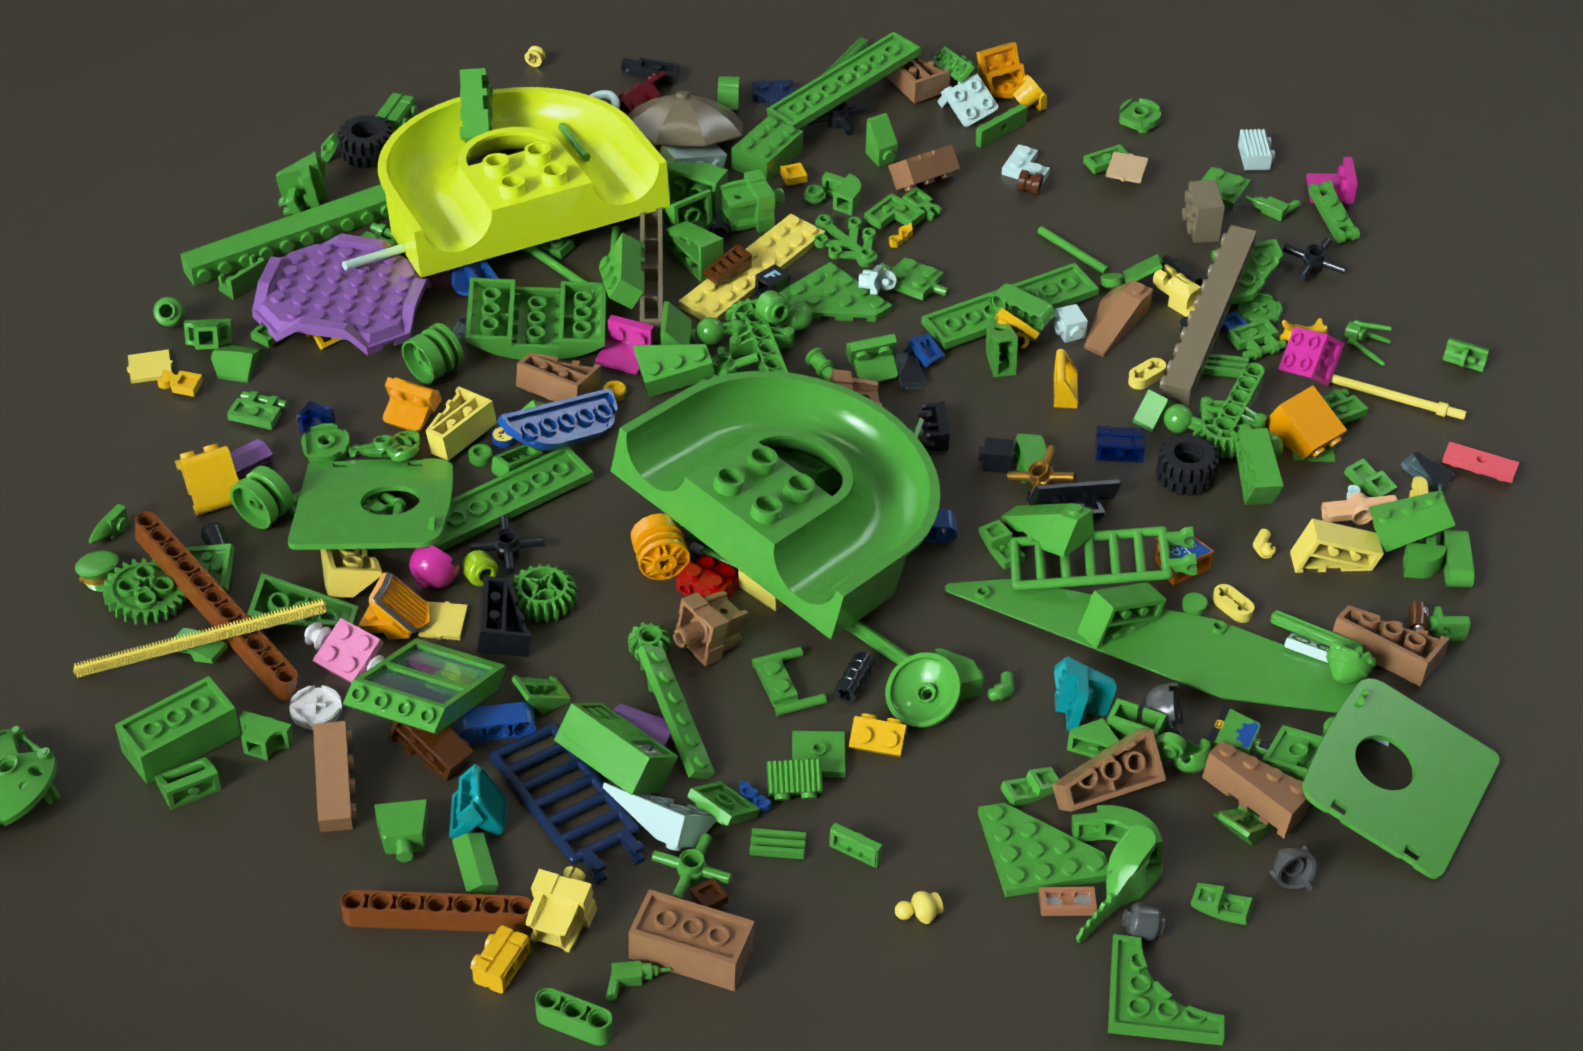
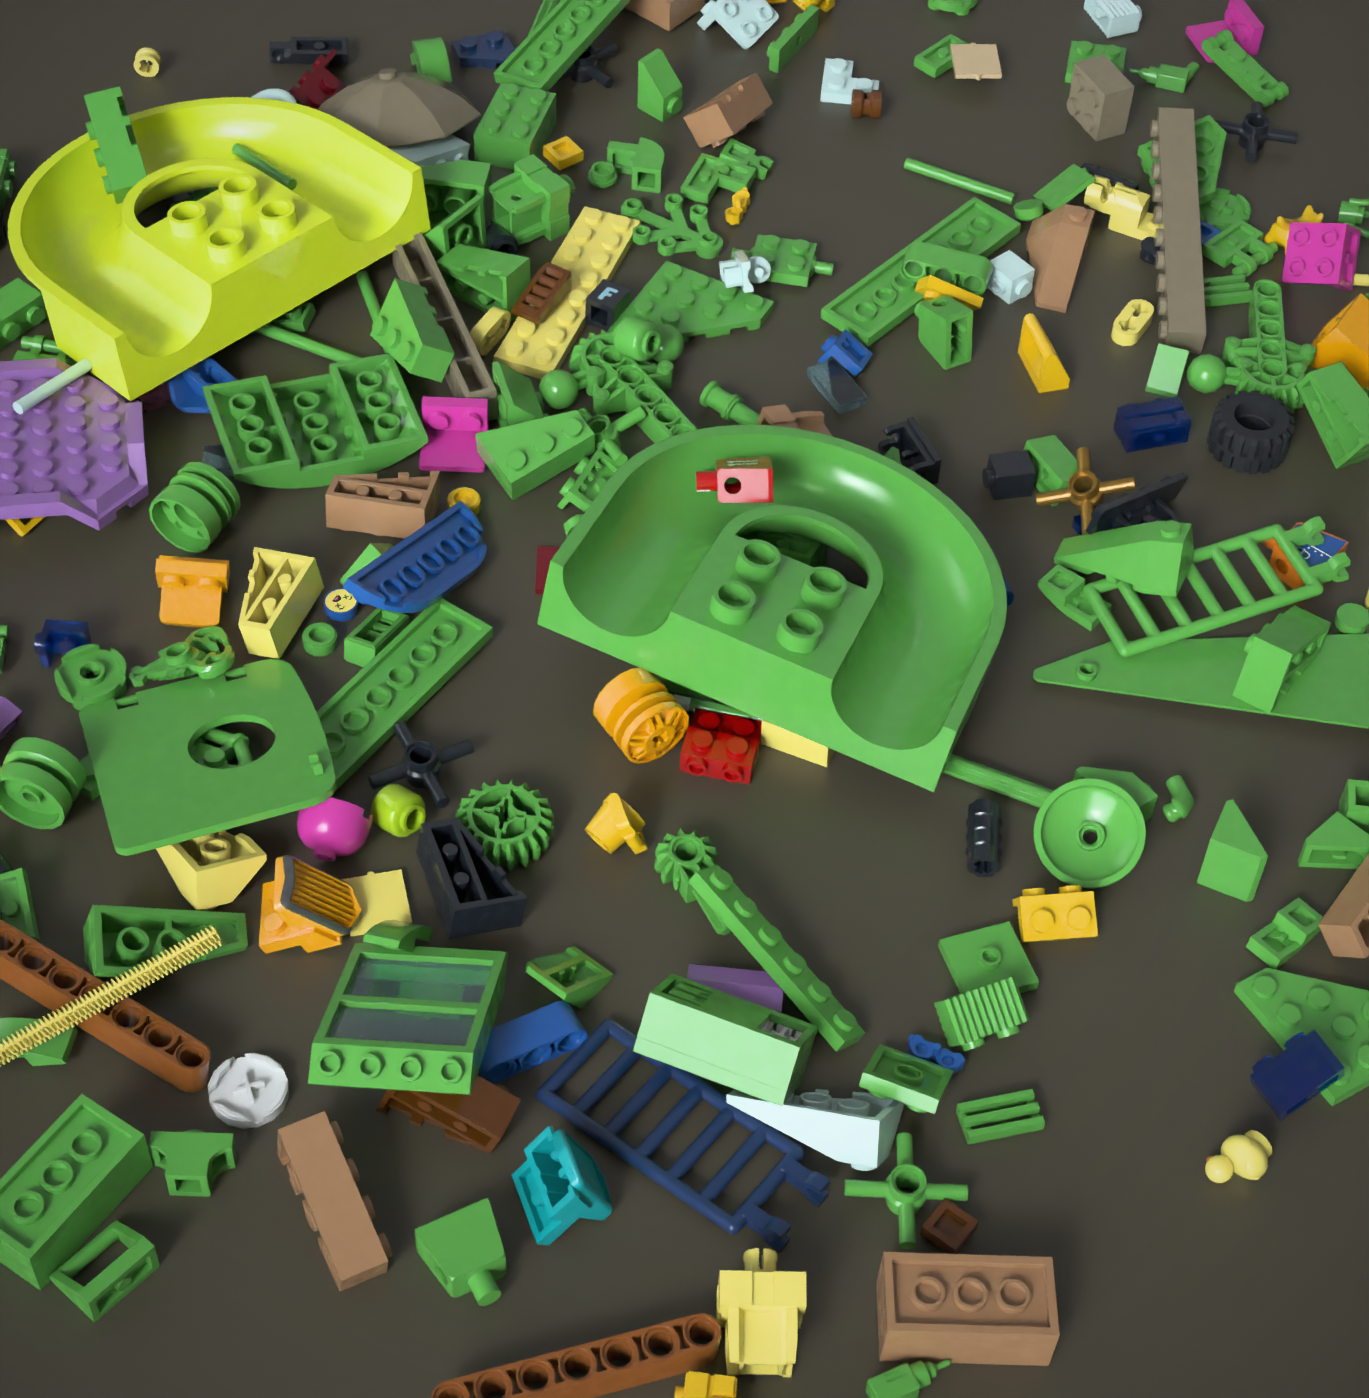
camera: 20 degrees left, 5 degrees up
(345, 649) = (260, 989): bright pink plate -> none
(441, 639) = (397, 935): none -> bright green slope
(475, 864) = (599, 1278): bright green piece -> none
(614, 610) = (615, 824): none -> yellow piece
(683, 283) = (490, 329): none -> light yellow beam
(706, 626) = (758, 821): medium nougat piece -> none
(779, 685) = (886, 873): bright green plate -> none
(794, 412) = (753, 482): none -> torso
(855, 845) = (1109, 1089): bright green plate -> none
(874, 358) = (791, 378): bright green piece -> none
(981, 866) = (1296, 1073): none -> clear blue brick
(1010, 725) = (1233, 856): none -> bright green slope
(1081, 691) = (1286, 781): teal piece -> none

